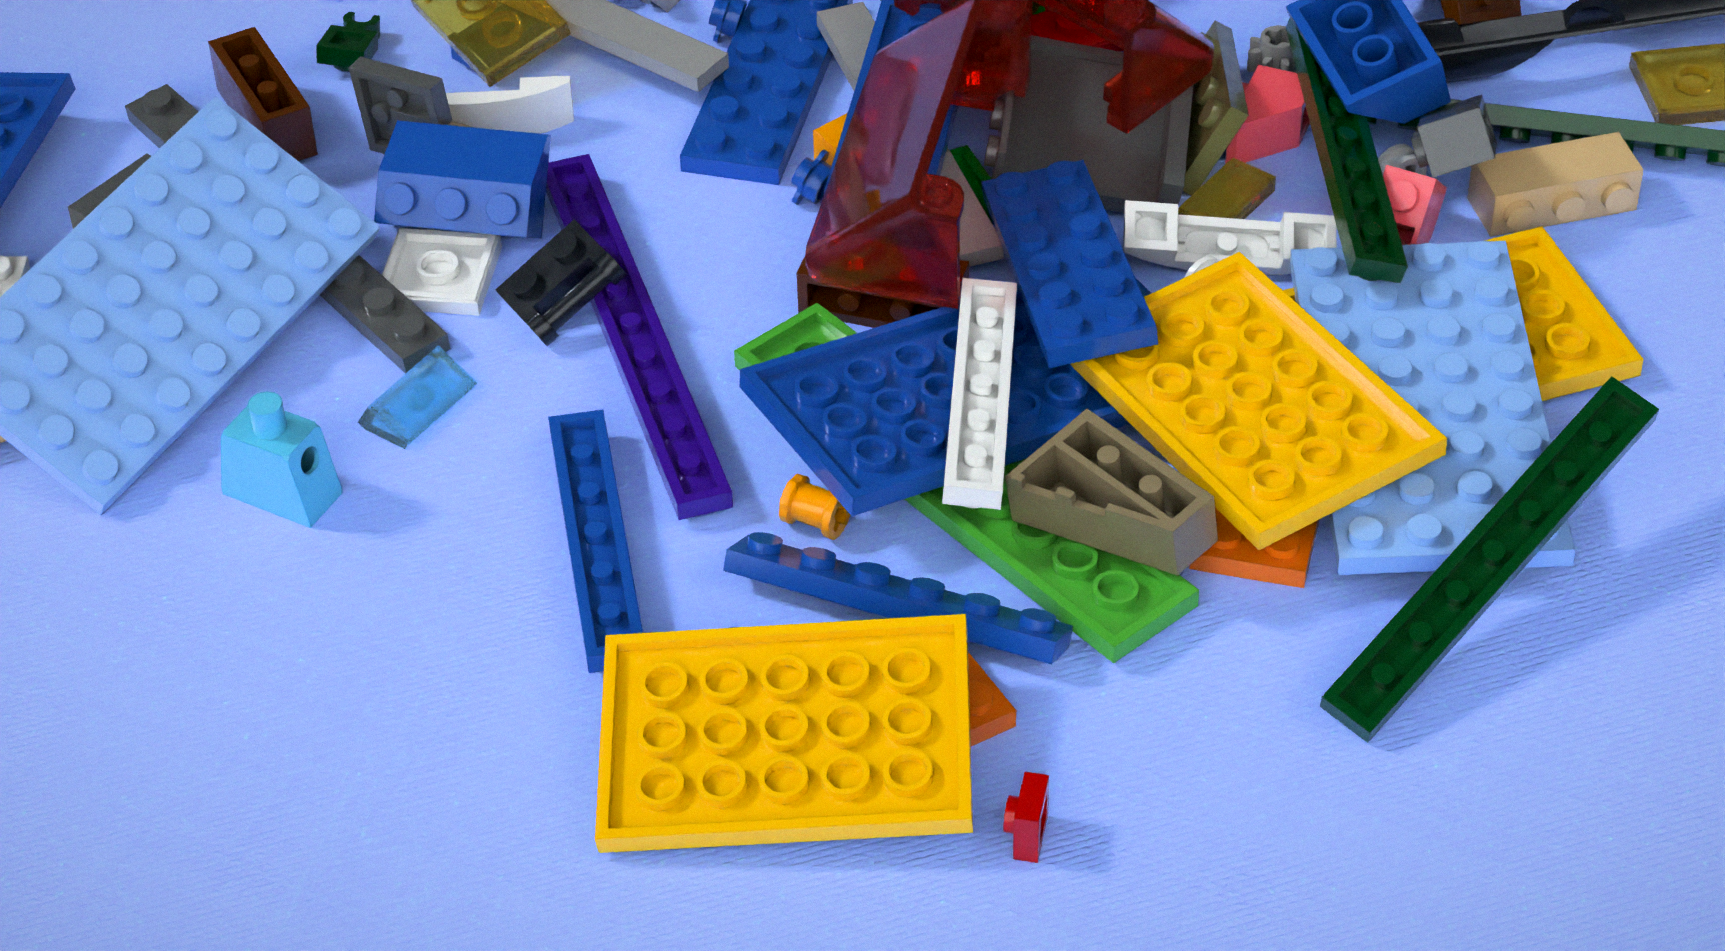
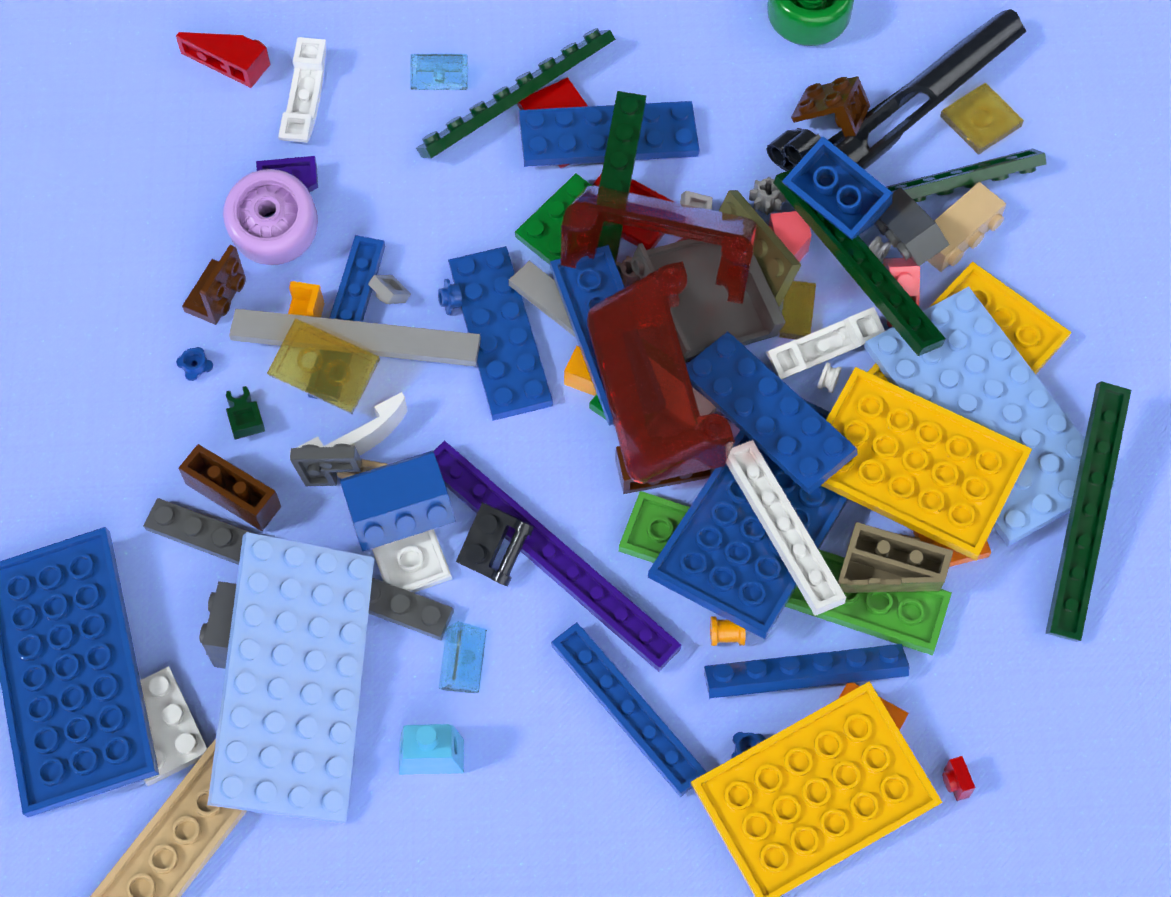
camera: 30 degrees left, 20 degrees up
(811, 178) = (577, 399): blue plate -> none

